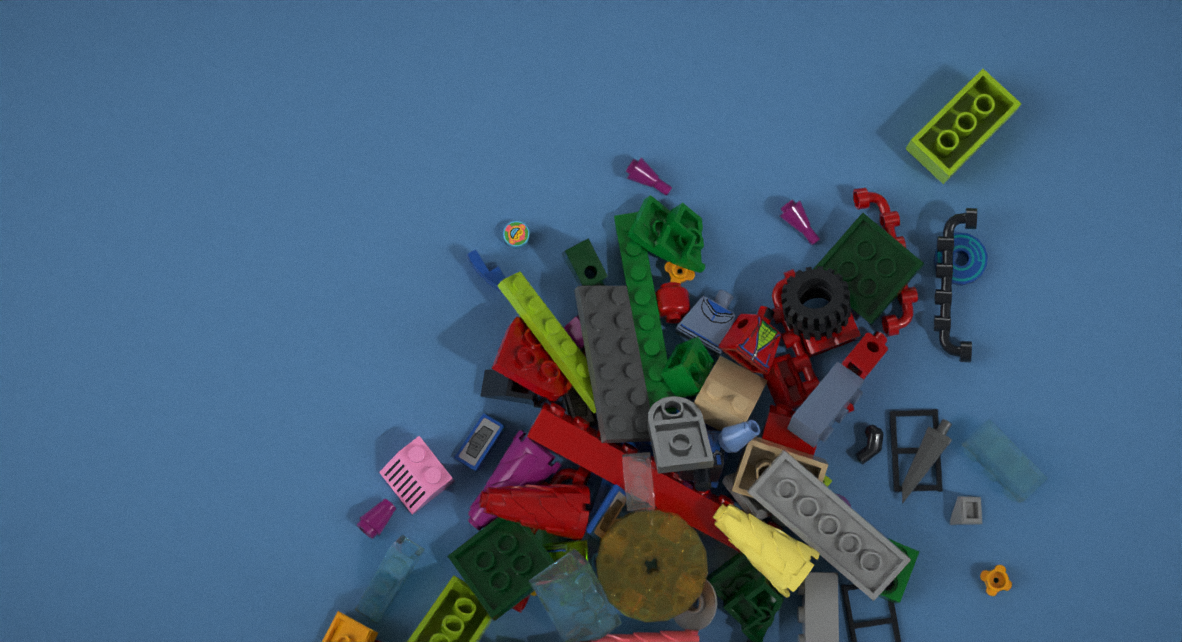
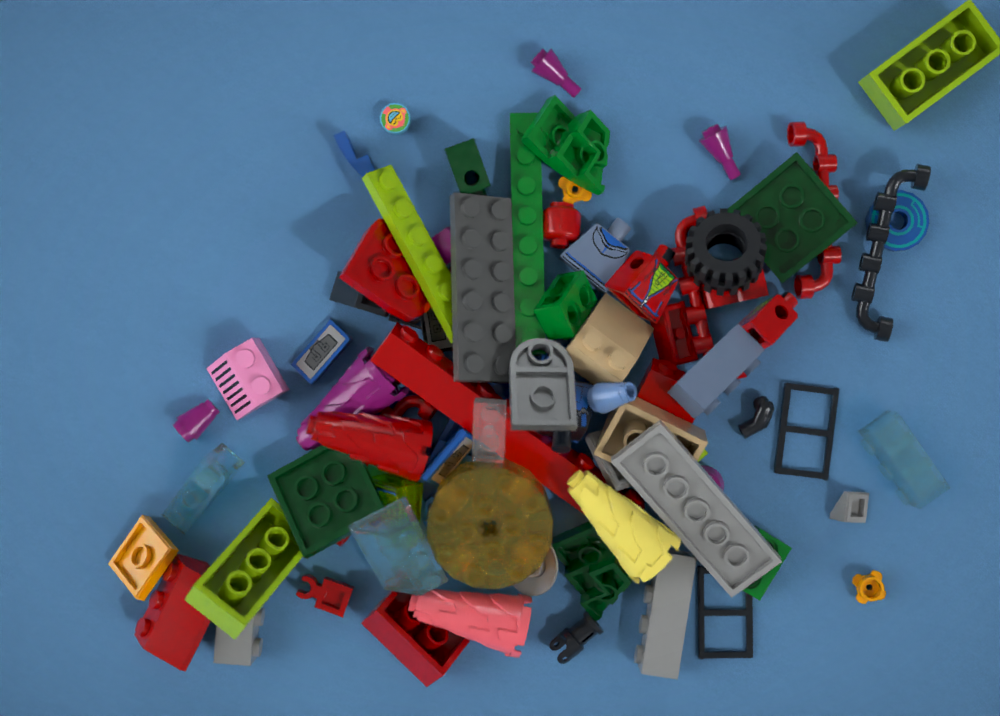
camera: 10 degrees right, 10 degrees up
(929, 451) = (819, 438): dark grey bar -> none

